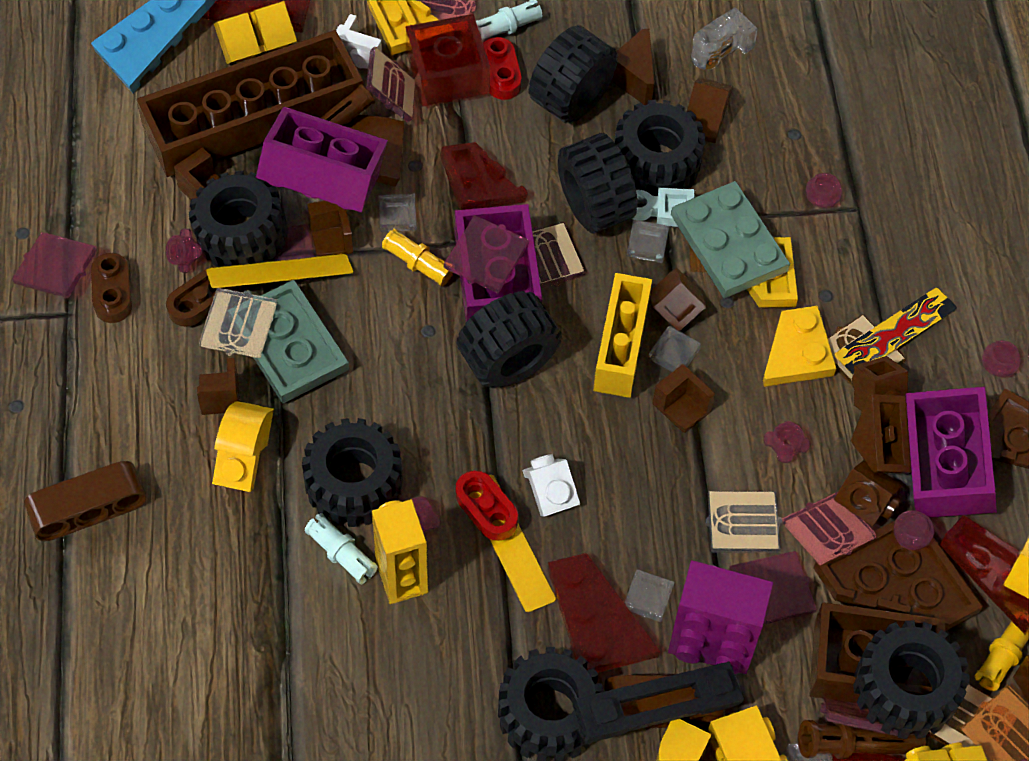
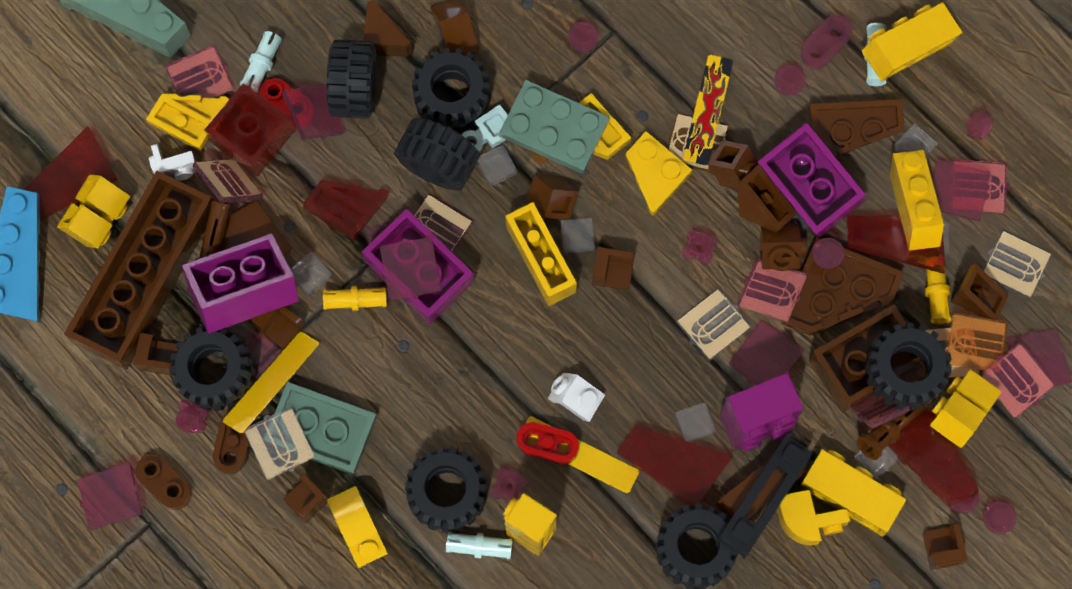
camera: 35 degrees left, 15 degrees up
(509, 339) = (474, 319): black tyre -> none
(511, 85) = (311, 112): none -> clear pink piece

